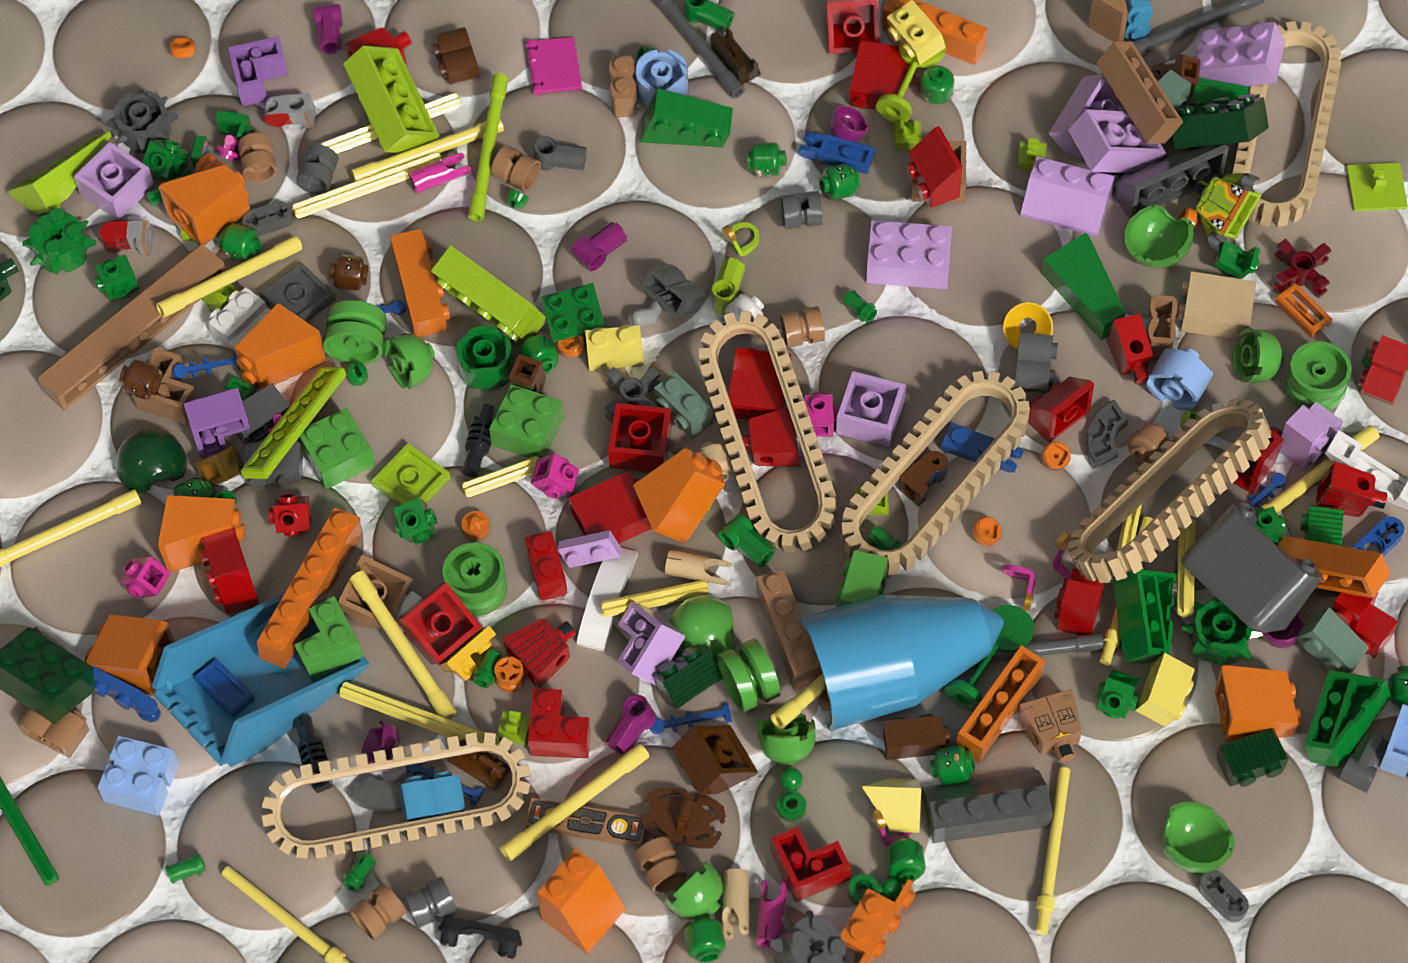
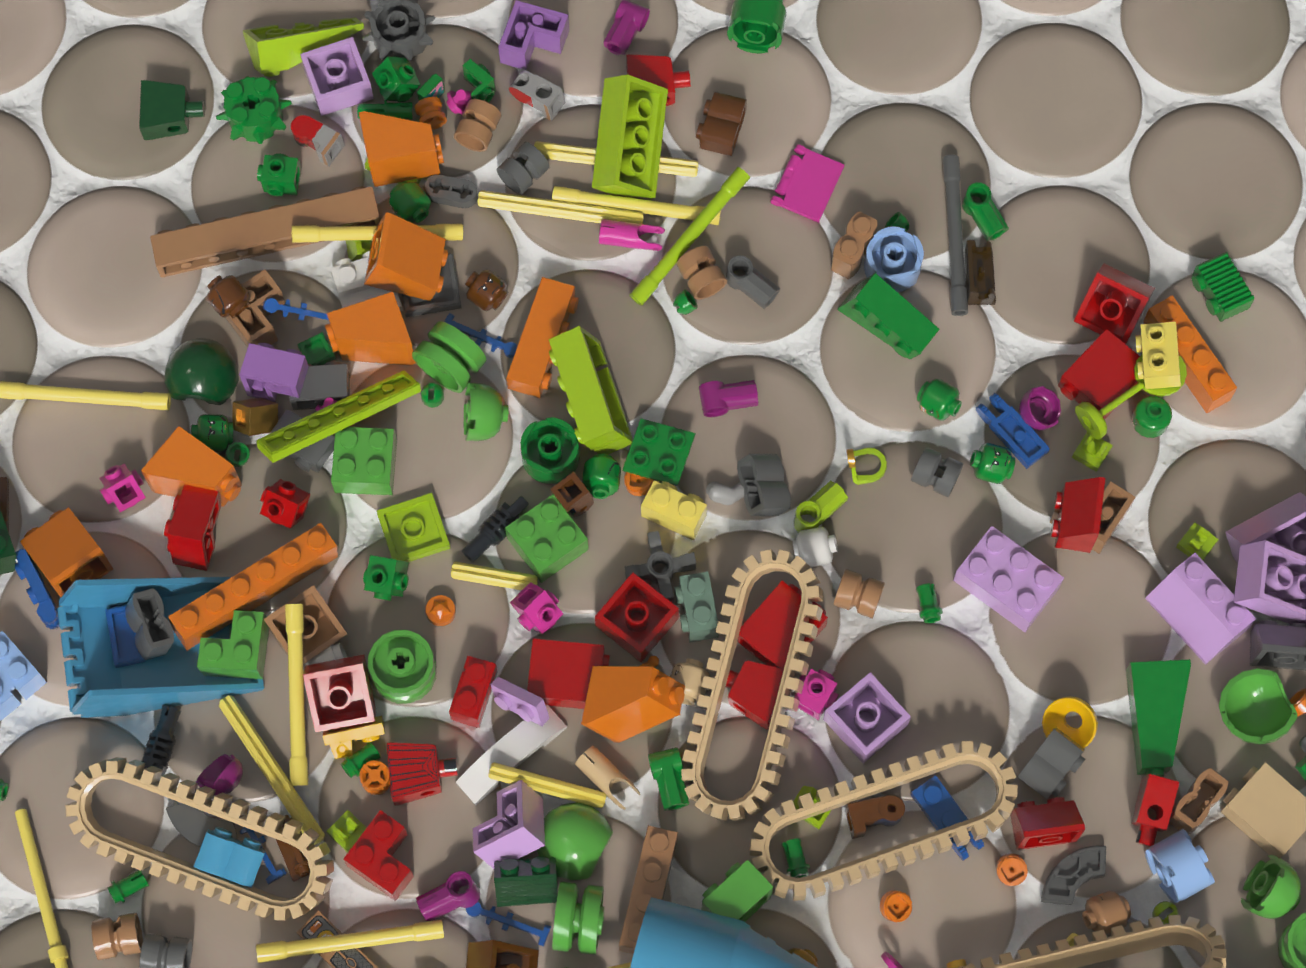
camera: 30 degrees right, 10 degrees up
(244, 661) = (146, 619): none -> dark grey brick
(268, 276) = (405, 259): none -> orange slope

